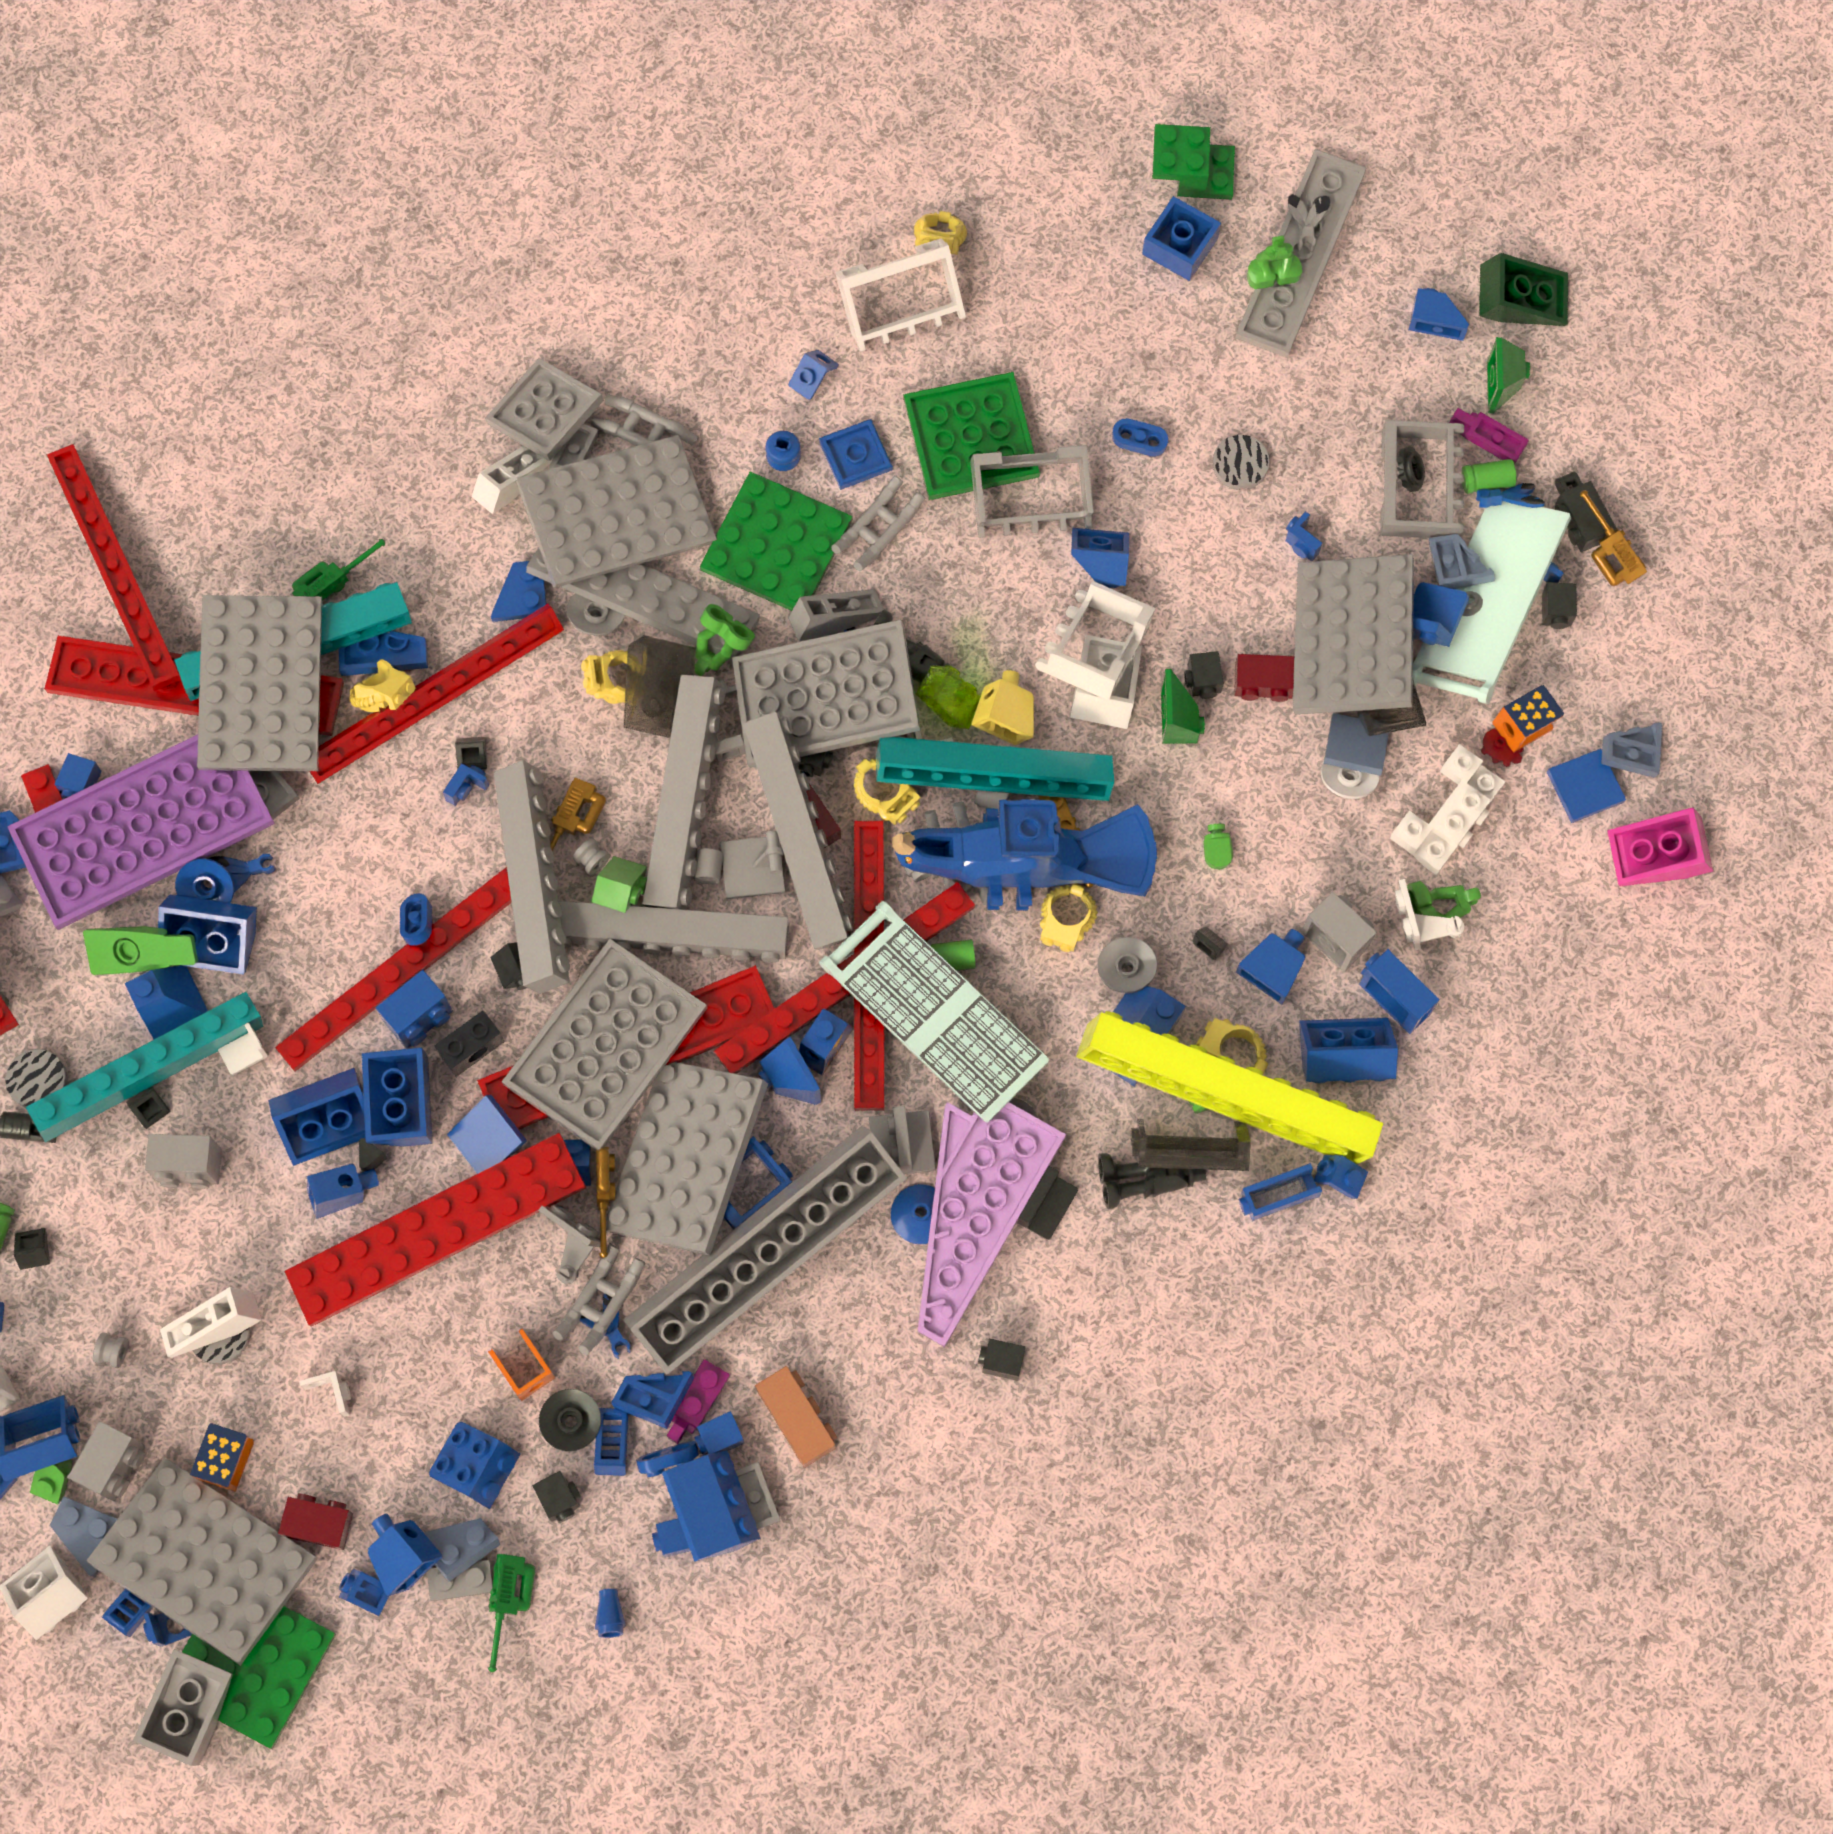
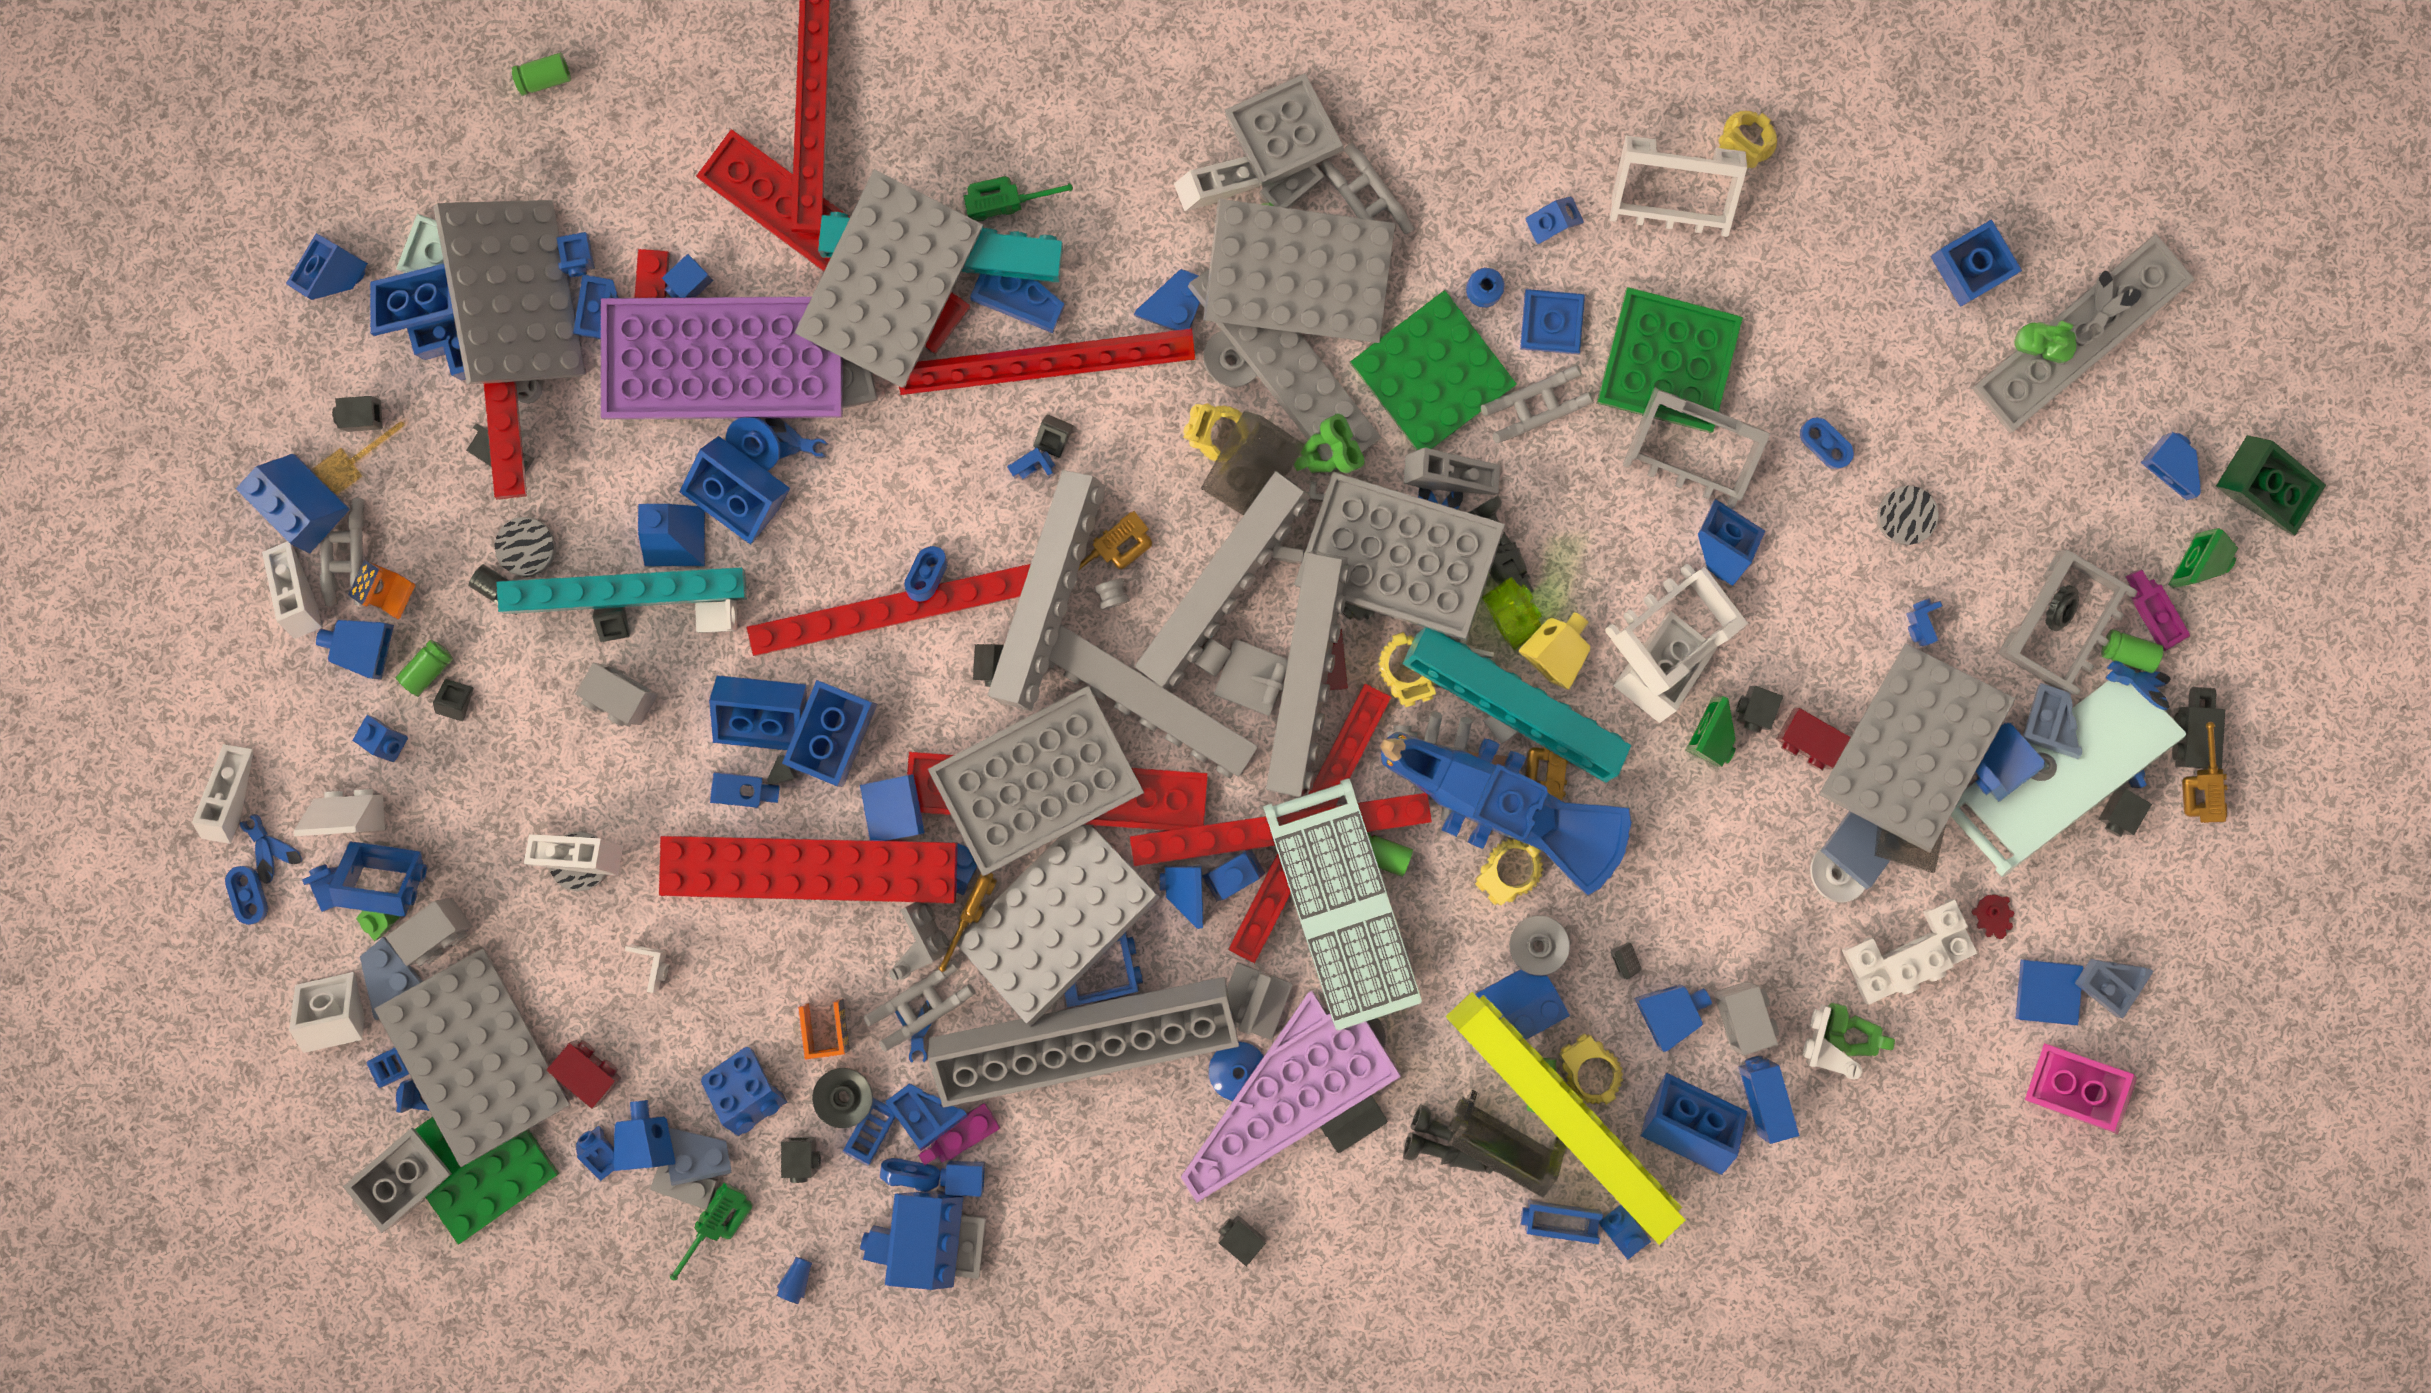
camera: 30 degrees right, 15 degrees up
(110, 1350) = (478, 829): light grey wheel -> none
(136, 949) = (665, 475): bright green piece -> none
(222, 1457) = (530, 977): dark blue piece -> none
(382, 689) = (1004, 347): light yellow piece -> none
(415, 1010) = (882, 661): blue brick -> none
(469, 1043) = (918, 714): black brick -> none
(620, 884) = (1123, 639): bright green brick -> none
(796, 1416) = (1038, 1196): nougat brick -> none
(1189, 158) = (2031, 189): green bracket -> none
(1218, 847) = (1681, 877): bright green arm -> none
(1528, 718) = (2032, 906): piece -> none

